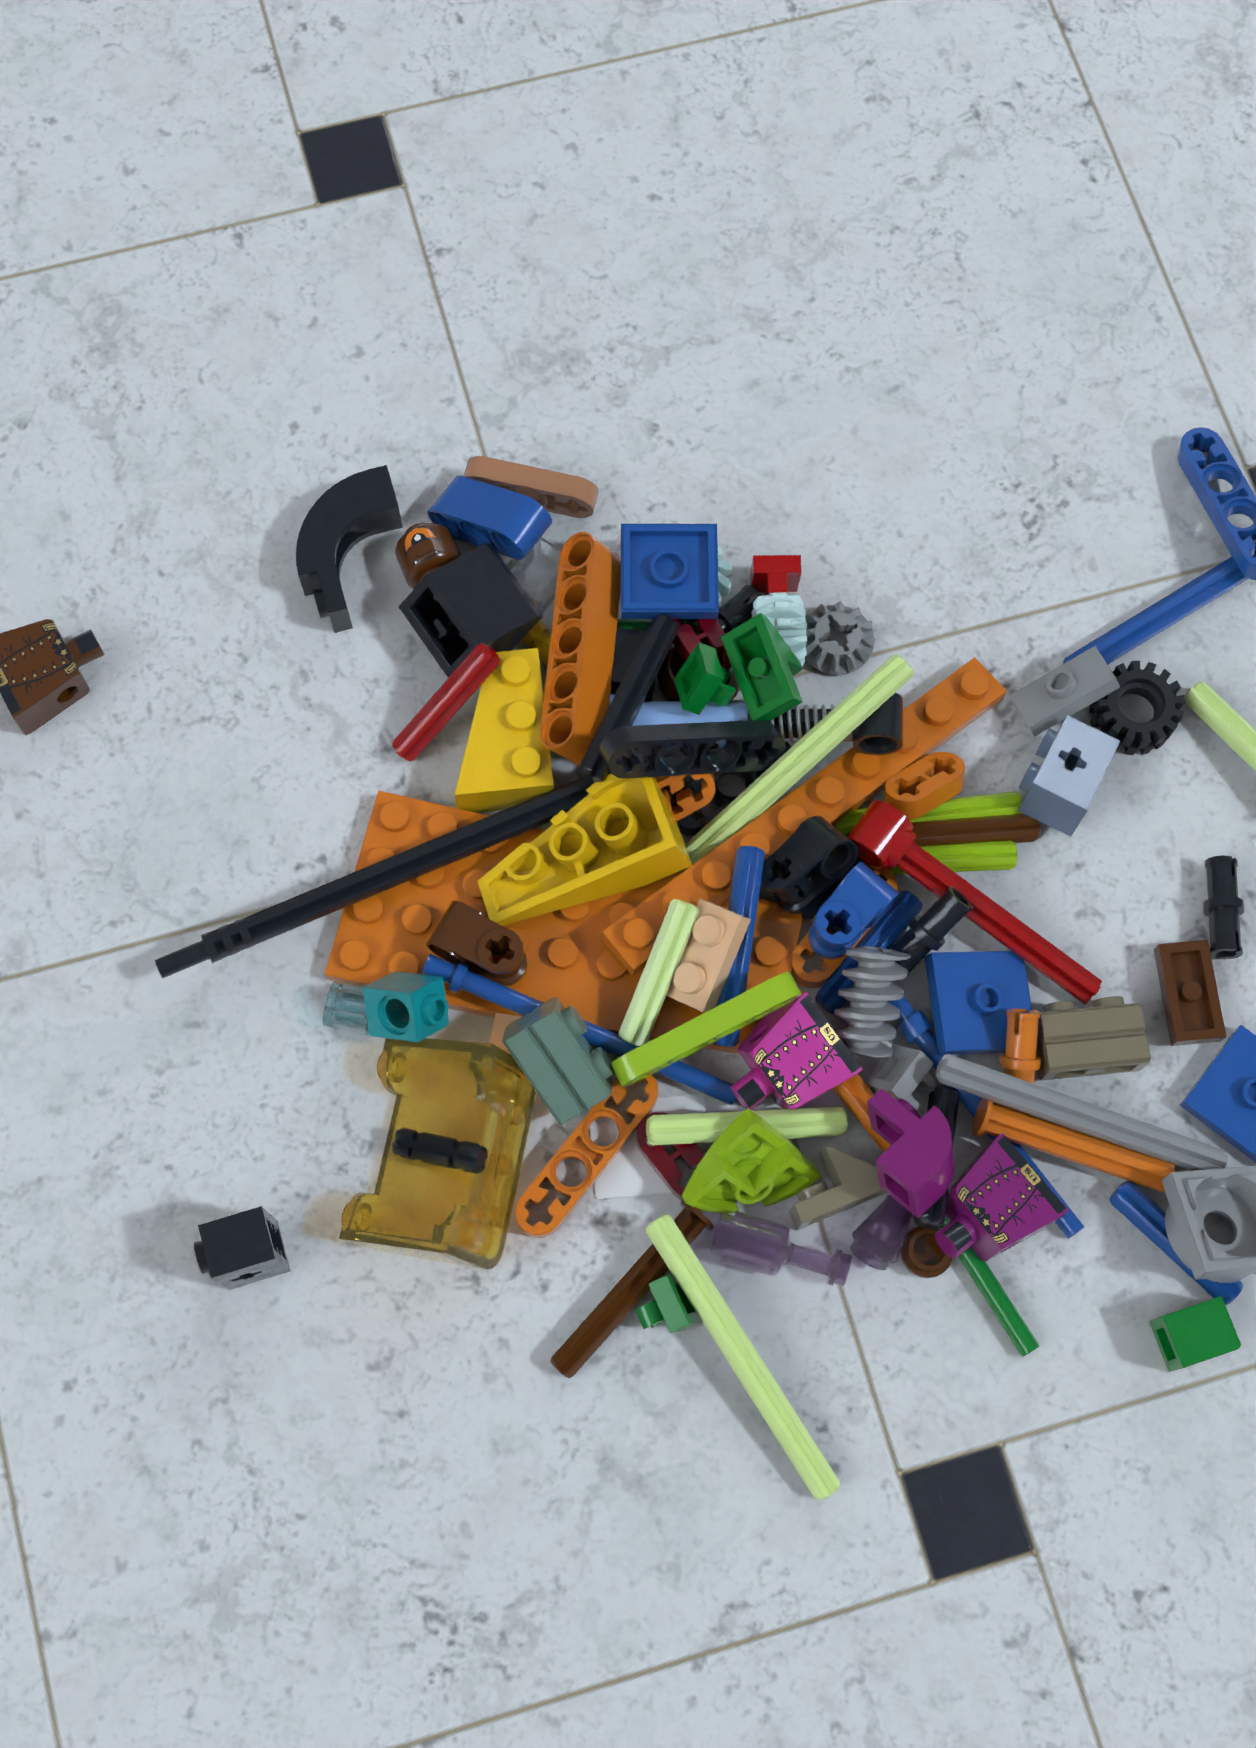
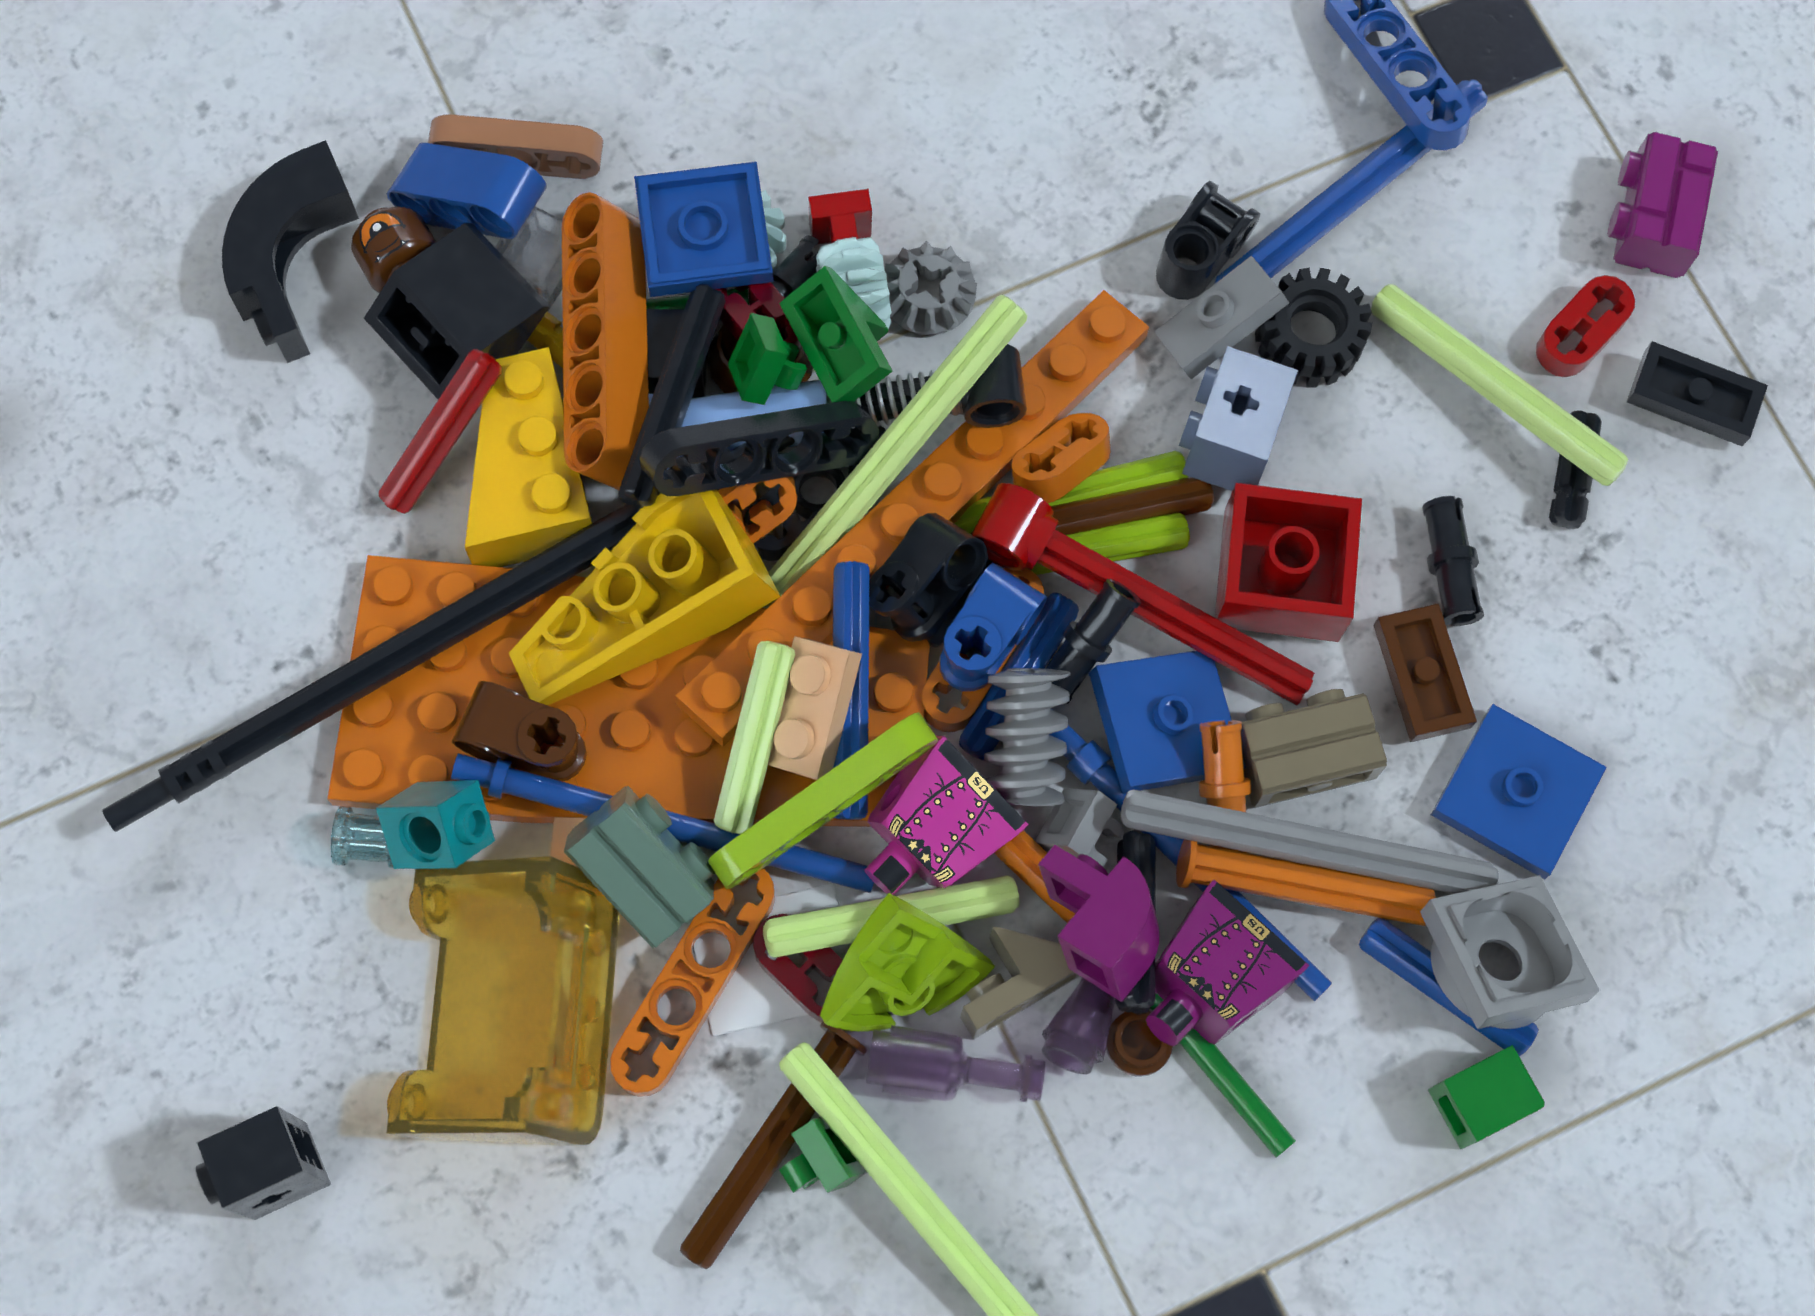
camera: 10 degrees left, 0 degrees up
(440, 1150) = (503, 1002): black axle -> none
(1063, 624) = (1208, 235): none -> black piece
(1093, 891) = (1288, 562): none -> red brick

